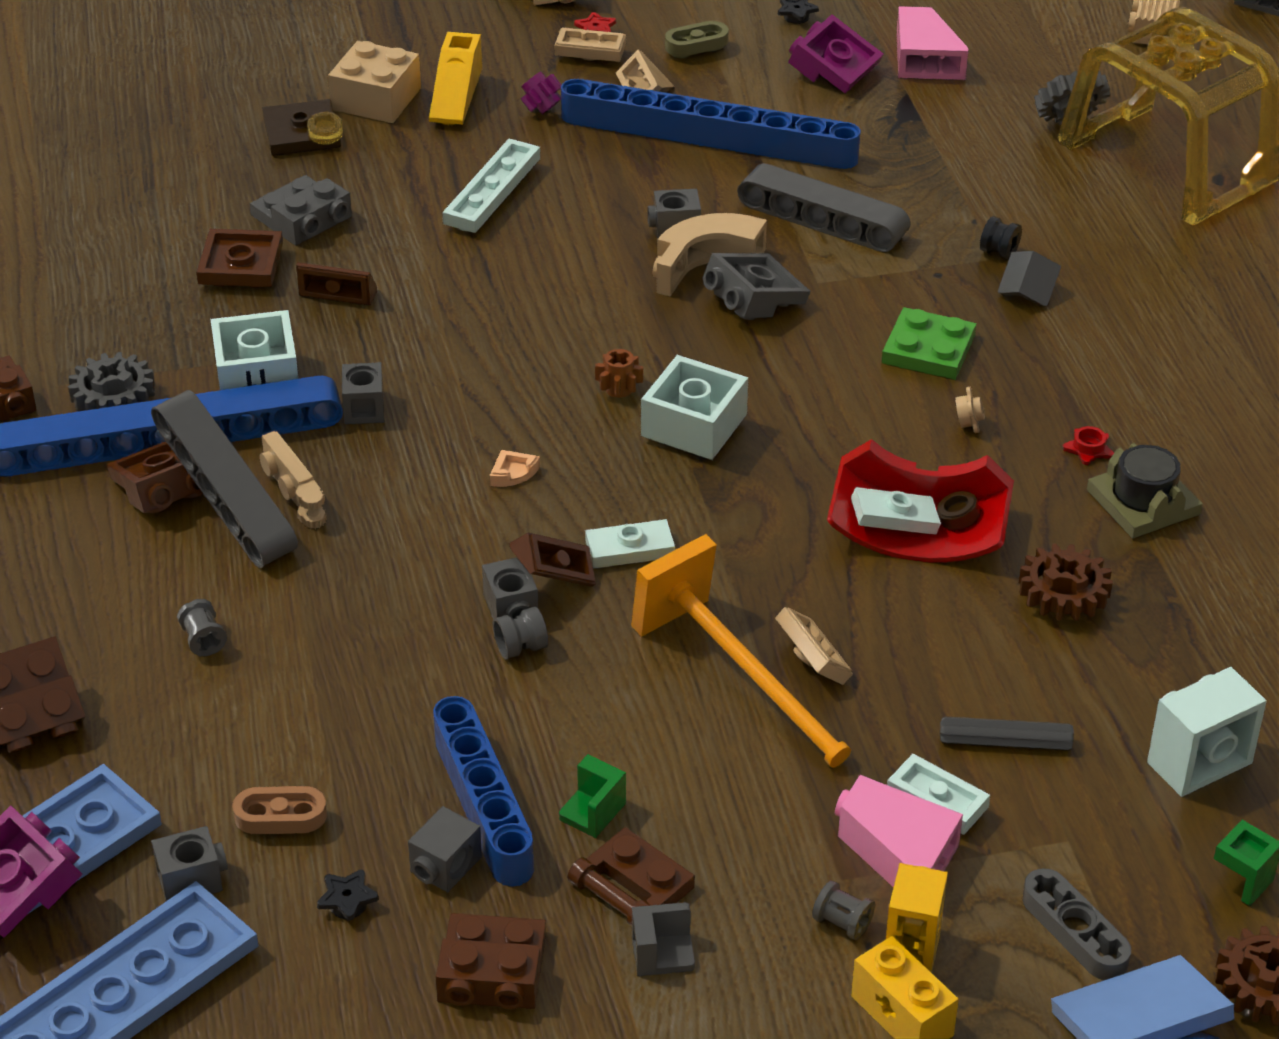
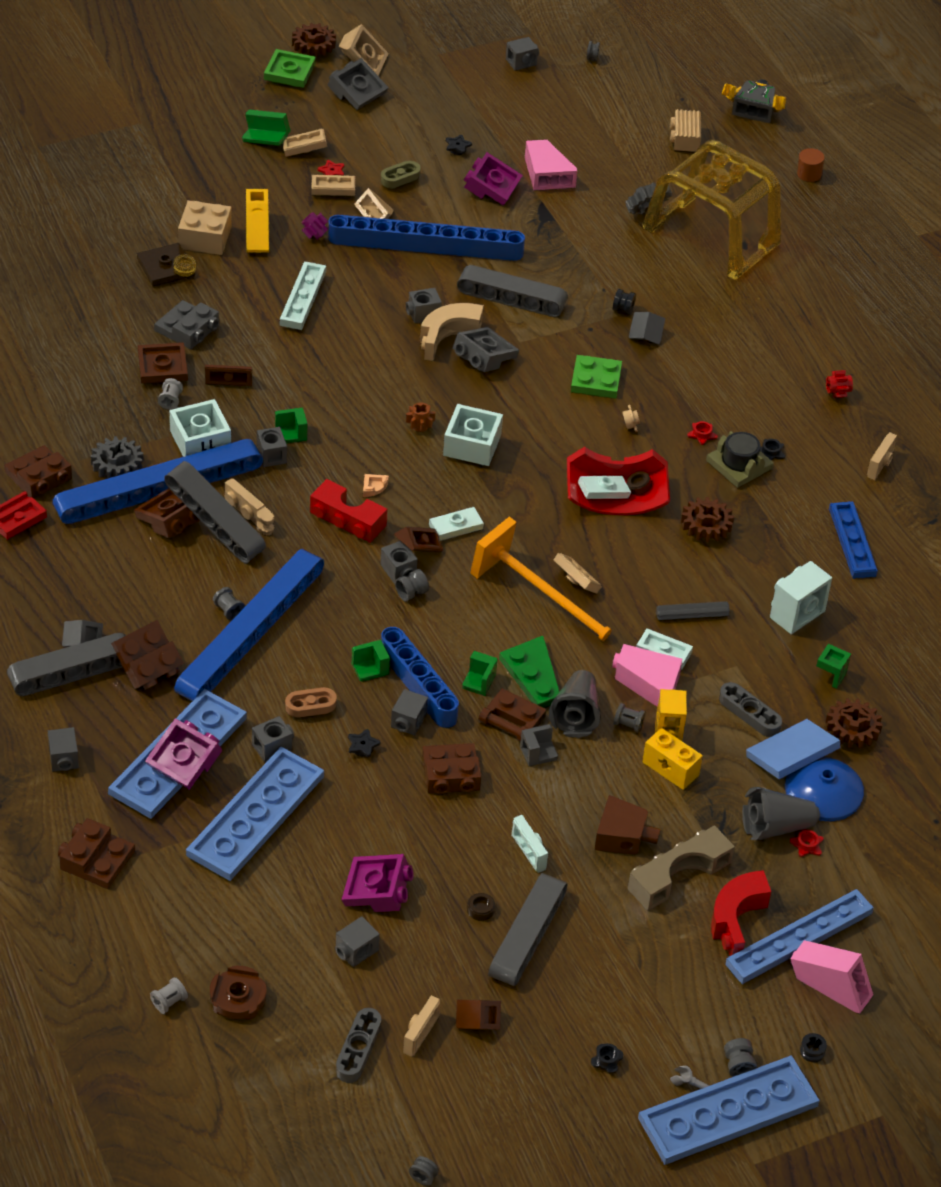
camera: 15 degrees left, 5 degrees up
(220, 668) = (249, 625): none -> blue beam
(236, 298) = (170, 393): none -> light grey bush
(406, 365) = (292, 424): none -> green panel
(407, 750) = (370, 660): none -> green panel
(430, 491) = (363, 520): none -> red arch
(691, 805) = (532, 670): none -> green wing
(747, 875) = (576, 706): none -> dark grey cone
(1205, 483) = (772, 449): none -> black plate

